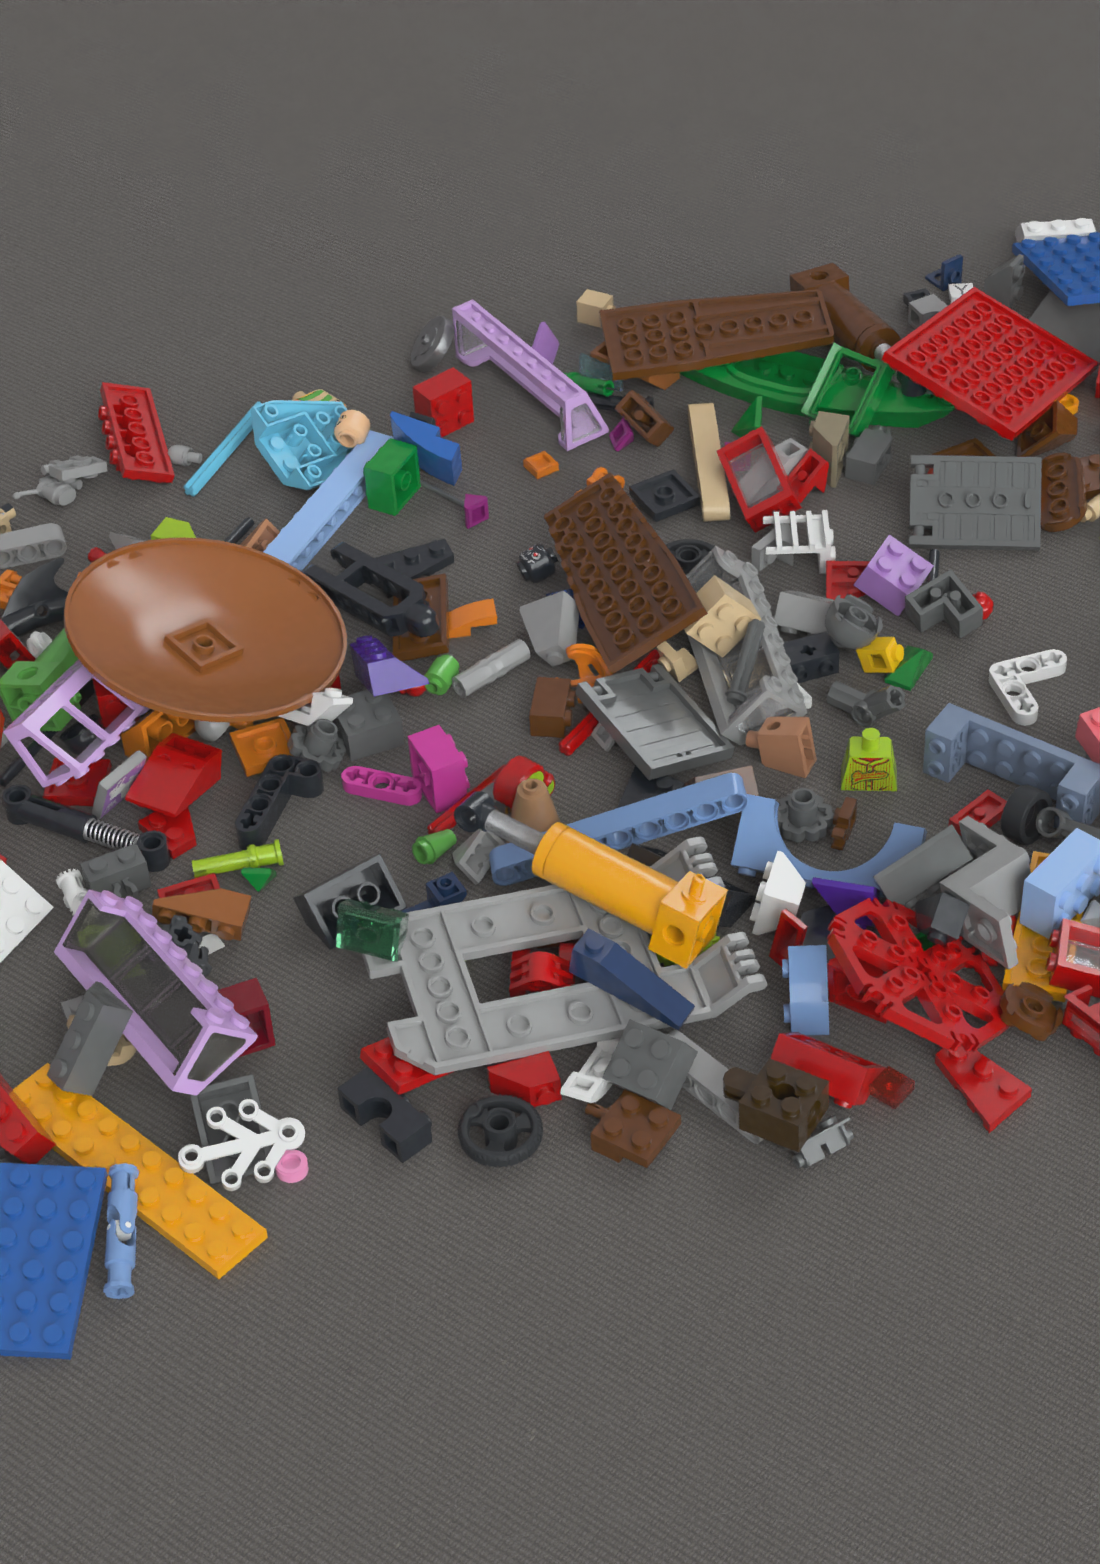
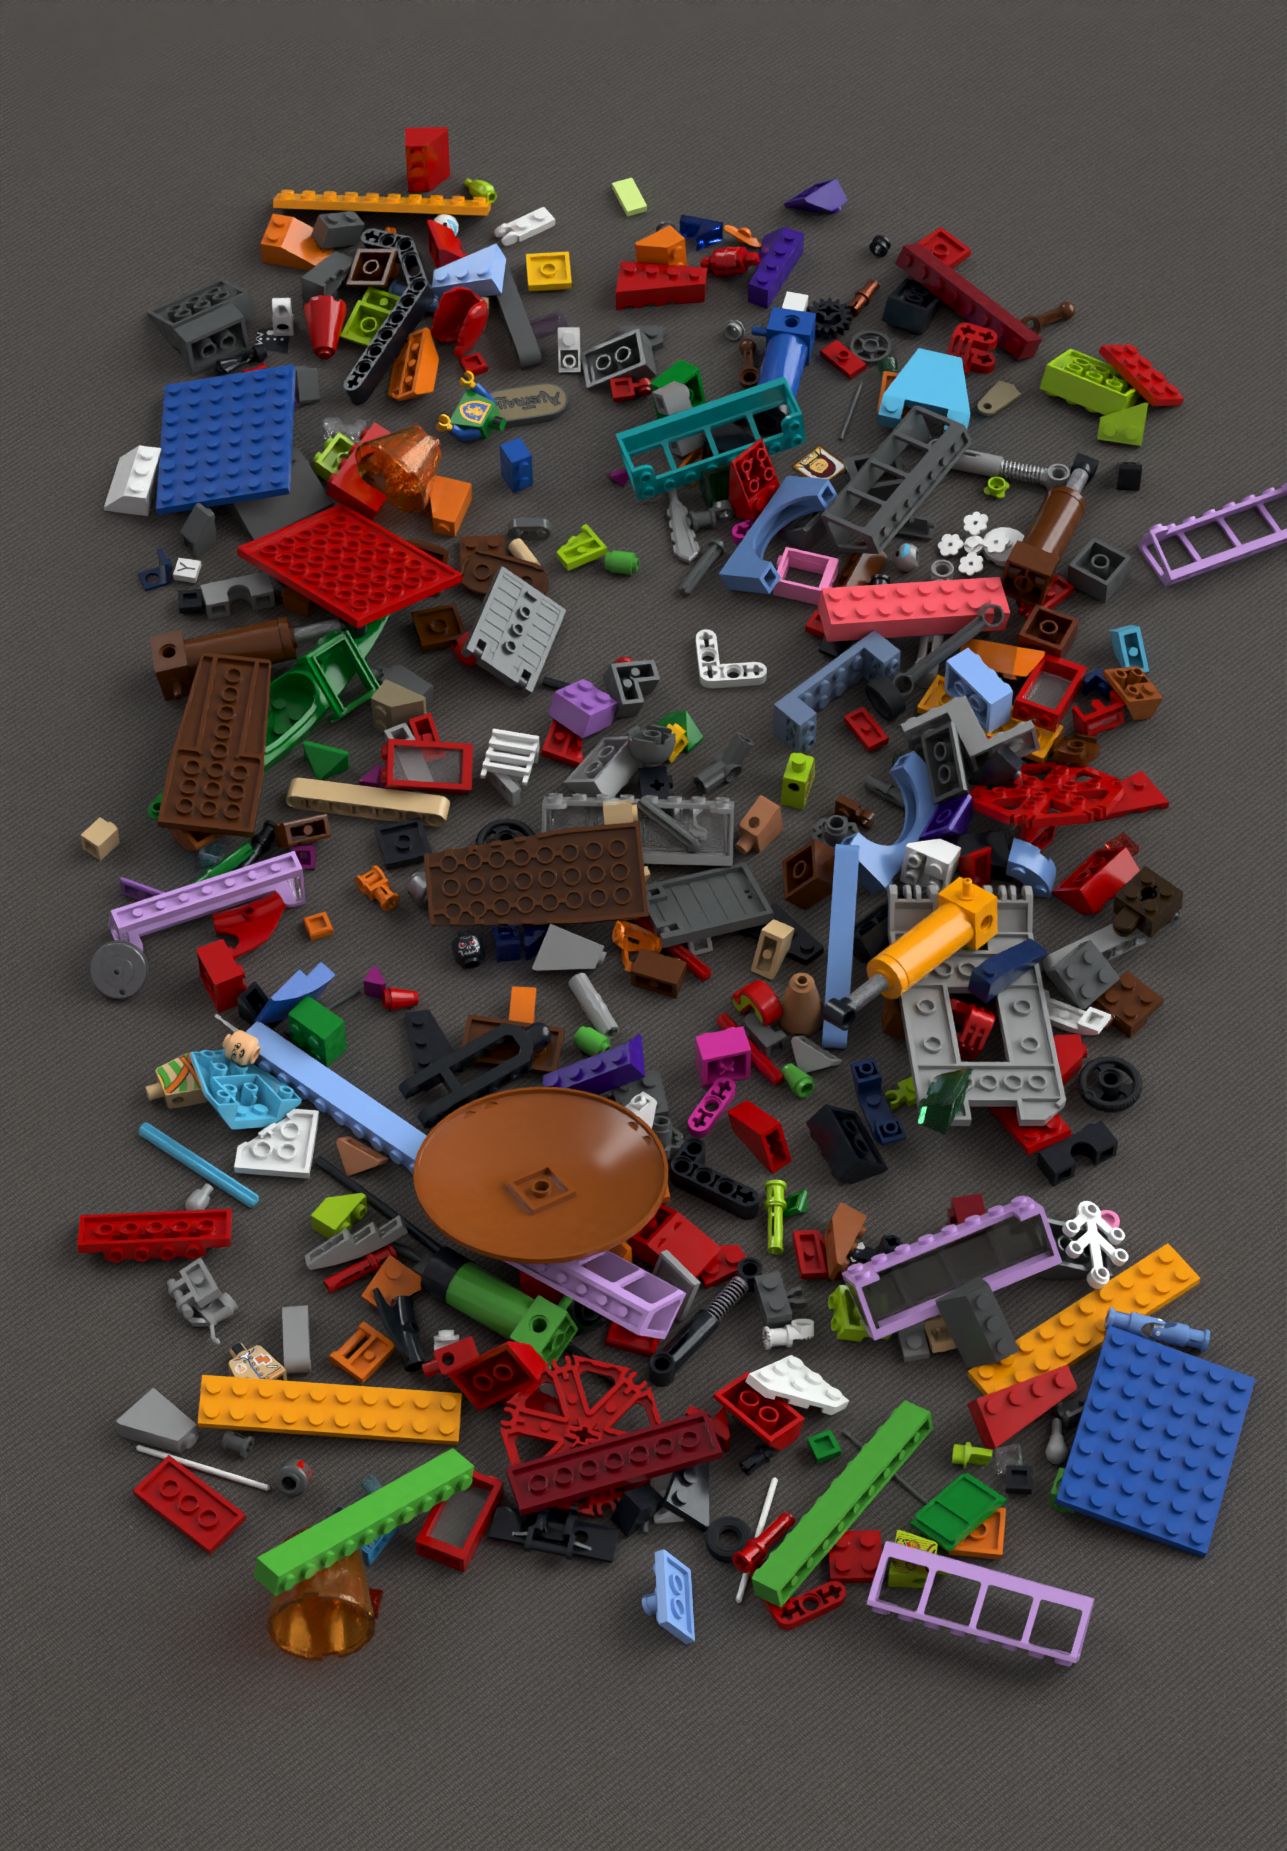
camera: 80 degrees left, 10 degrees up
(256, 493) = (282, 1147): none -> white plate
(342, 823) = (761, 1135): none -> red slope
(460, 530) = (399, 998): none -> red cone
(523, 416) = (251, 922): none -> red pin
(548, 580) = (506, 943): none -> clear blue slope
(611, 784) = (772, 948): none -> tan slope

